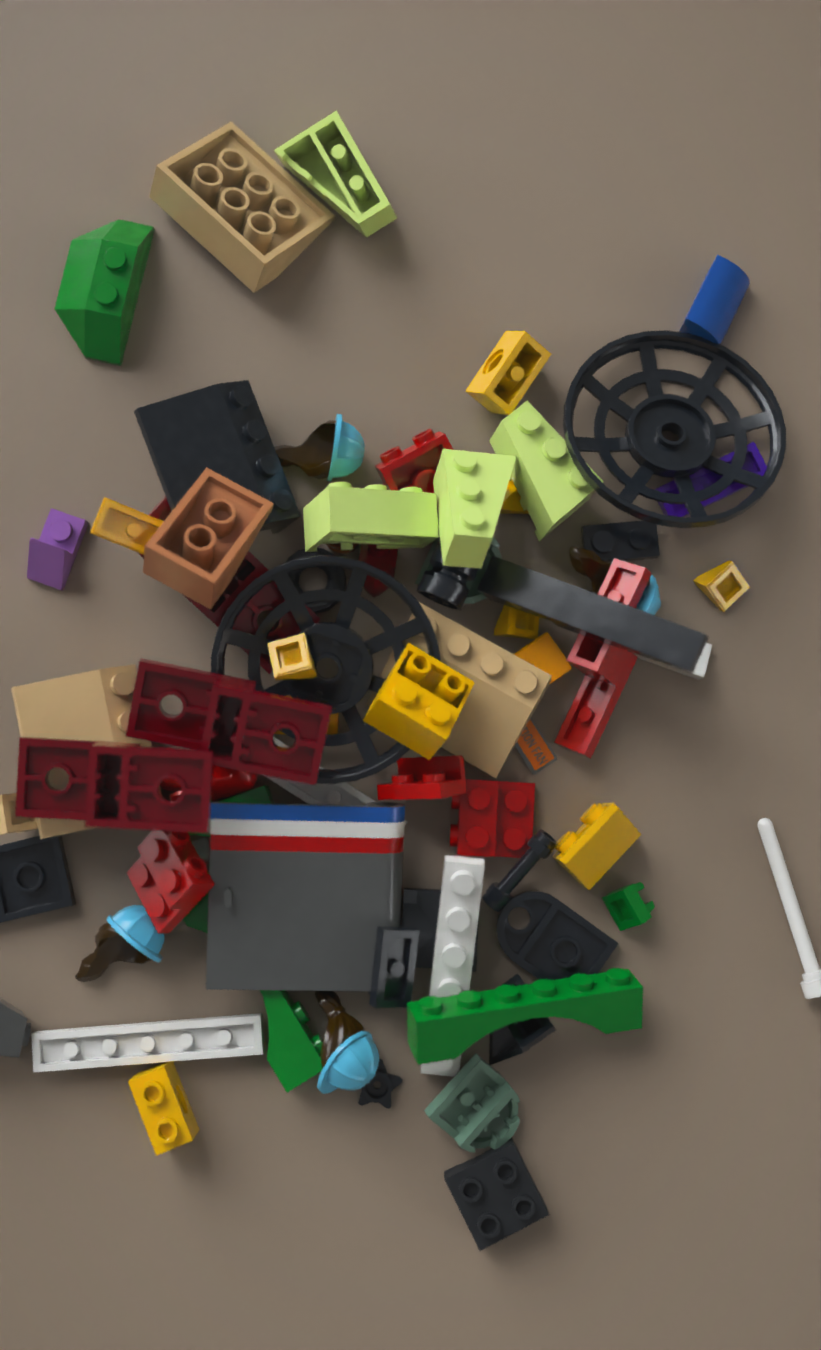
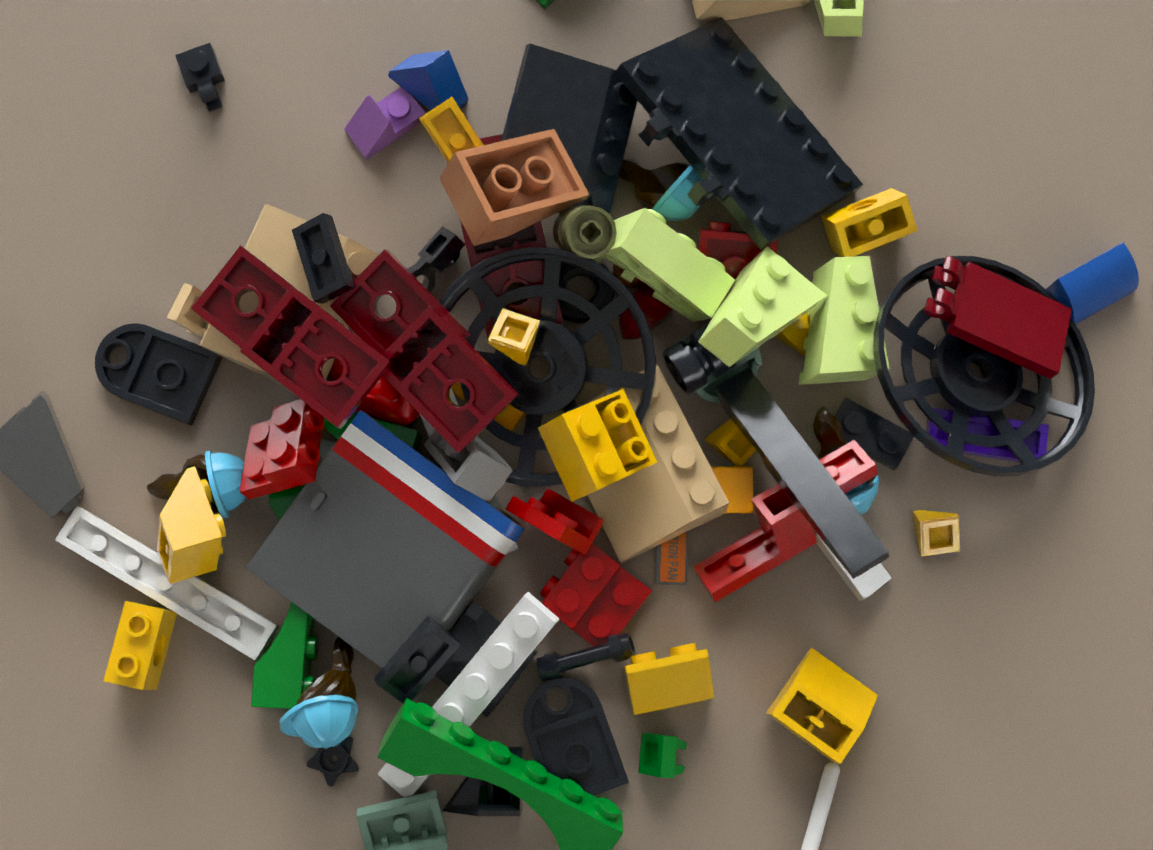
camera: 35 degrees right, 5 degrees down
(71, 489) = (430, 78): none -> blue slope
(93, 701) = (323, 258): none -> black plate
(140, 992) = (189, 530): none -> yellow slope
(179, 631) = (437, 255): none -> black plate
(290, 536) = (584, 231): none -> olive wheel
(337, 786) = (474, 469): none -> light grey slope
(352, 367) = (737, 132): none -> black hinge
(662, 380) = (1000, 316): none -> dark red tile
(727, 781) = (823, 706): none -> yellow slope

